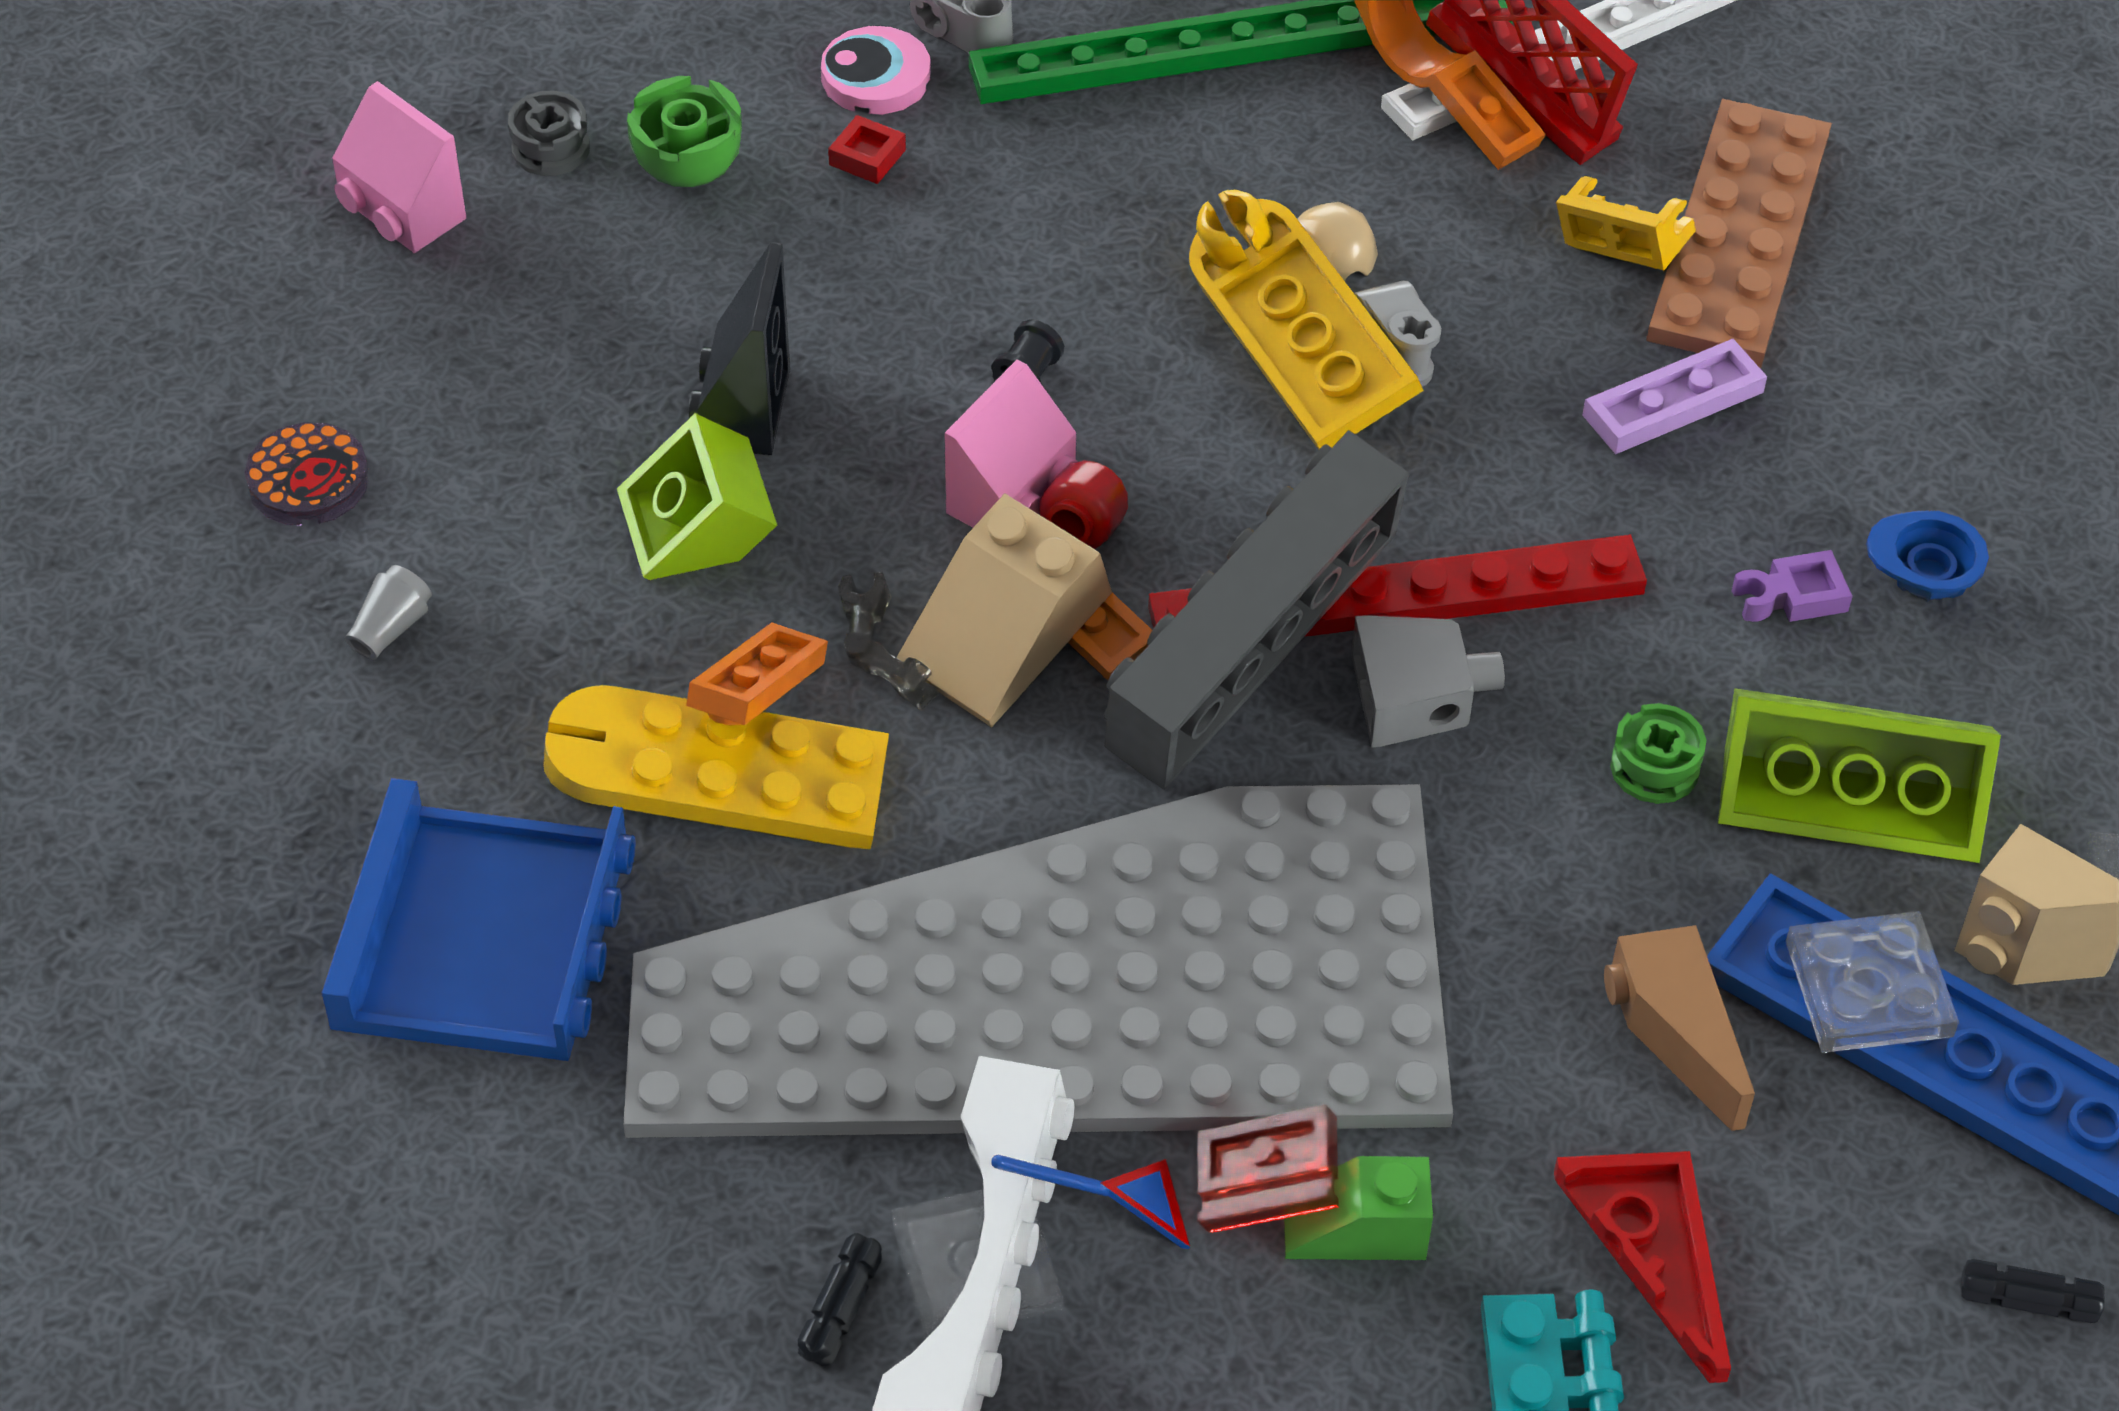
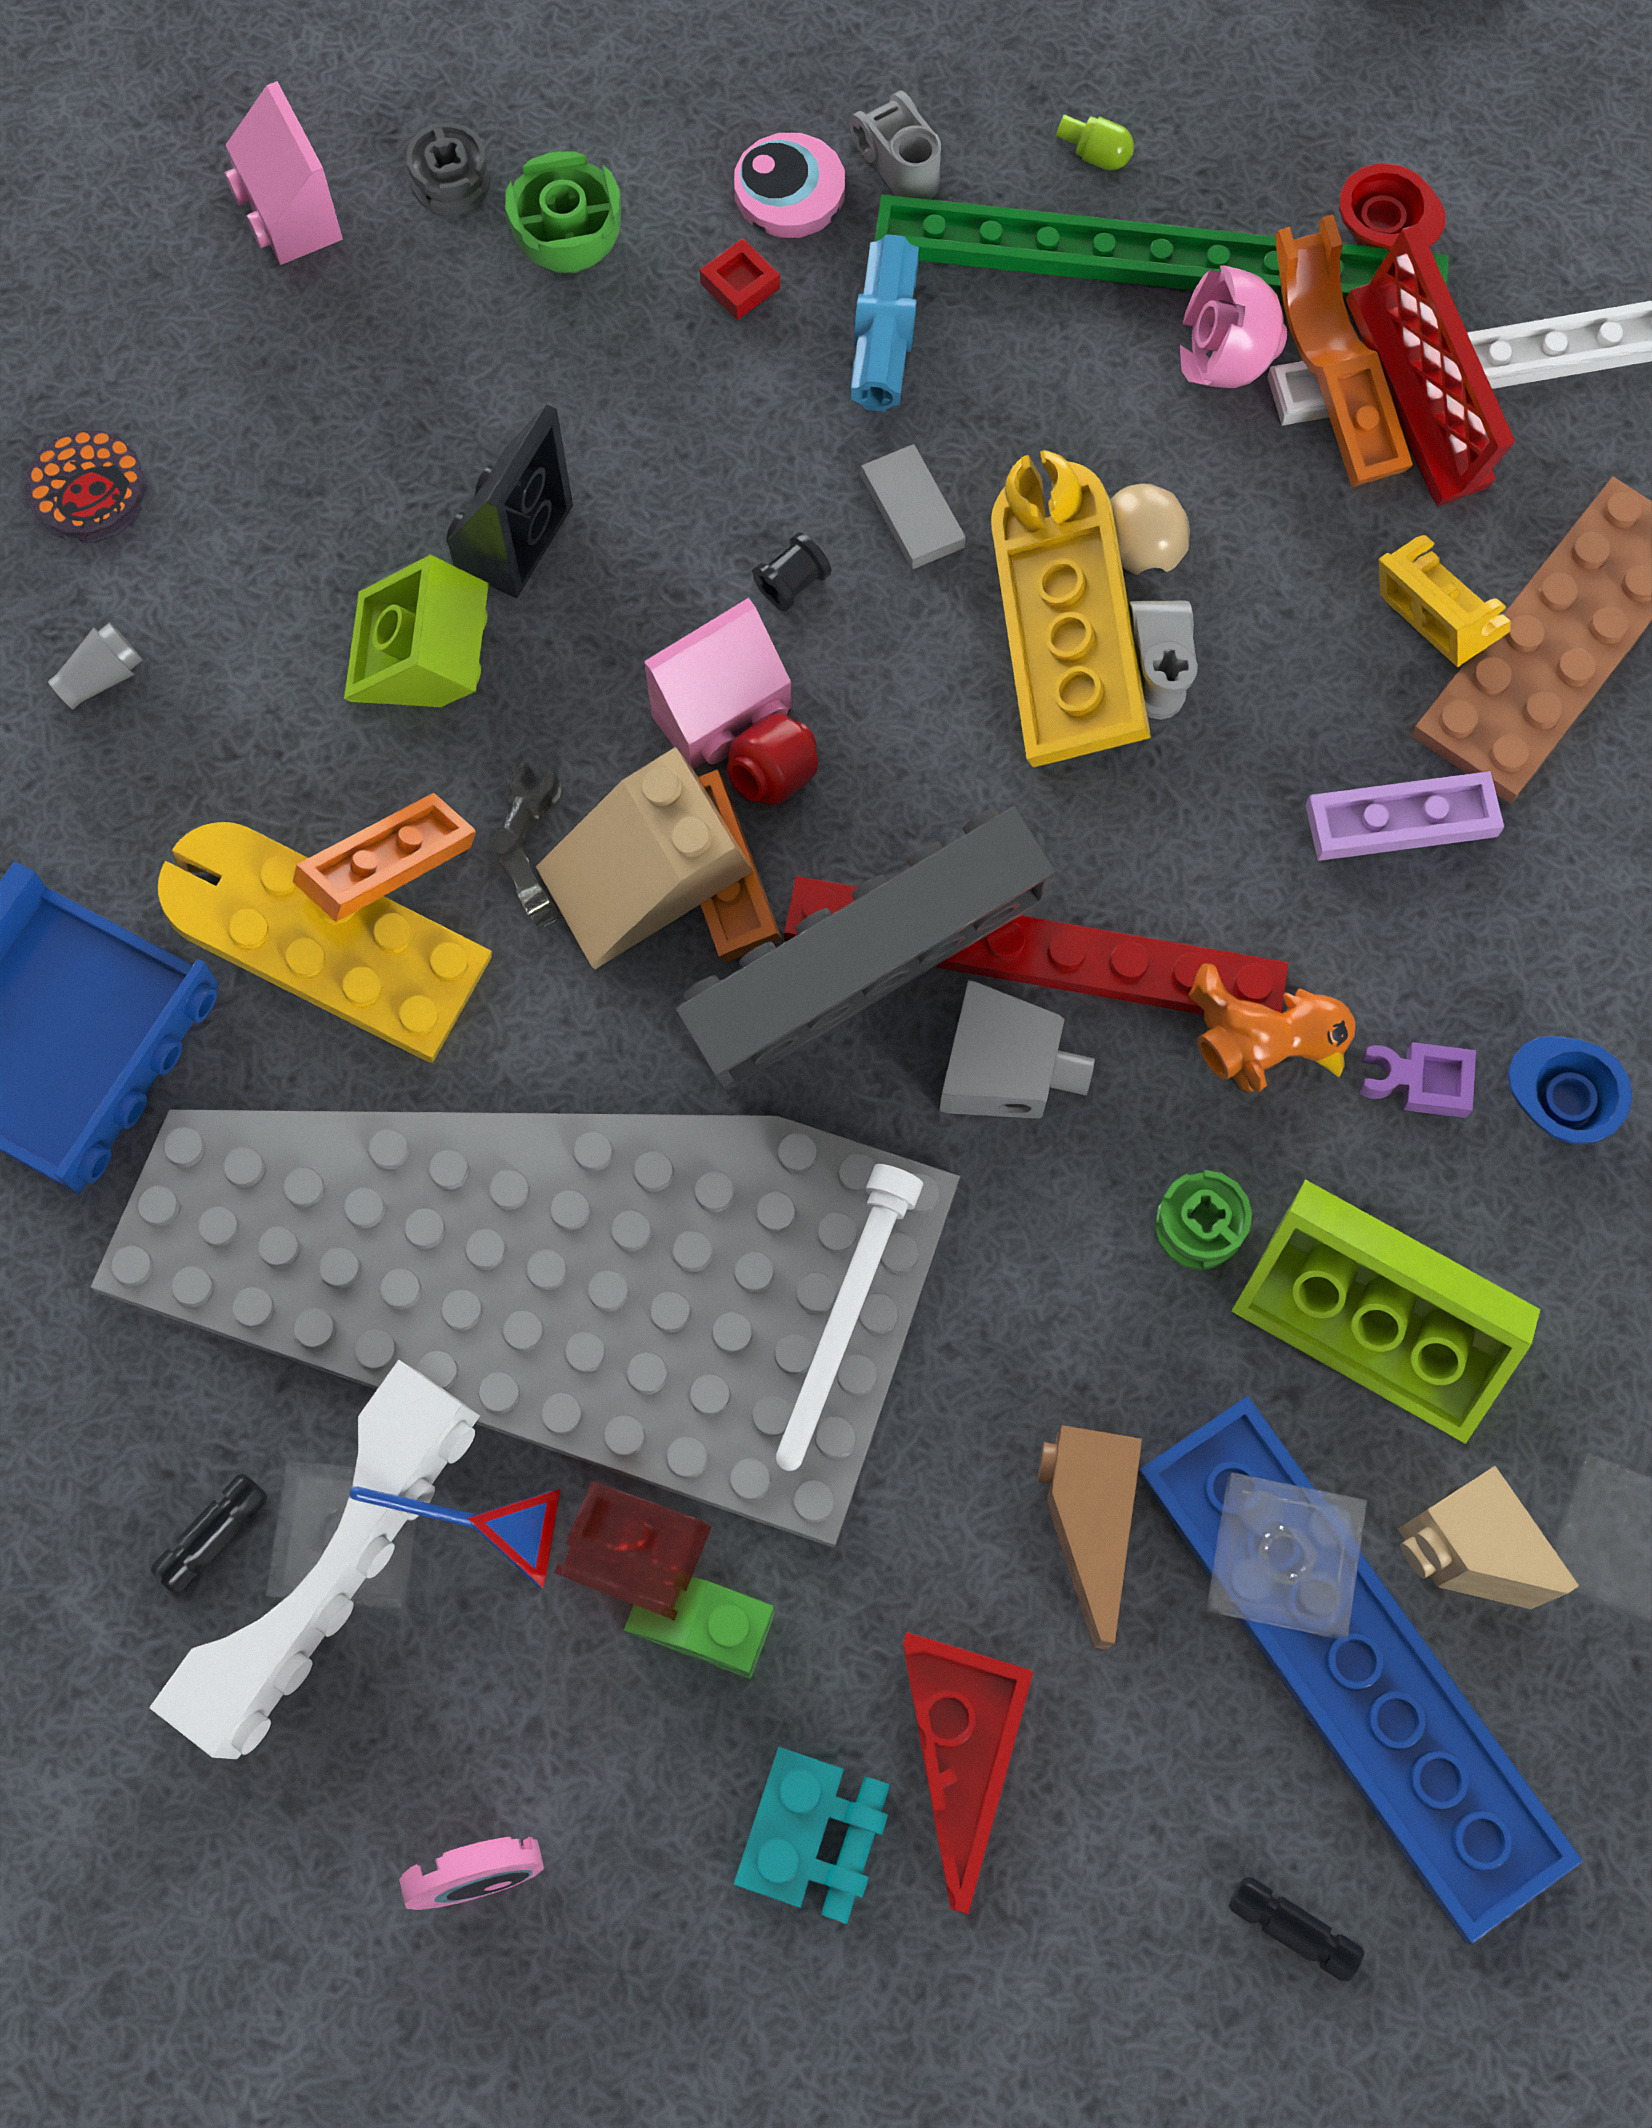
camera: 20 degrees right, 20 degrees up
(1019, 149) = (884, 323): none -> dark azure piece
(1112, 283) = (913, 506): none -> light grey tile
(1337, 59) = (1237, 320): none -> bright pink cylinder
(1370, 802) = (891, 1194): none -> white piece
(1631, 594) = (1253, 1038): none -> orange animal

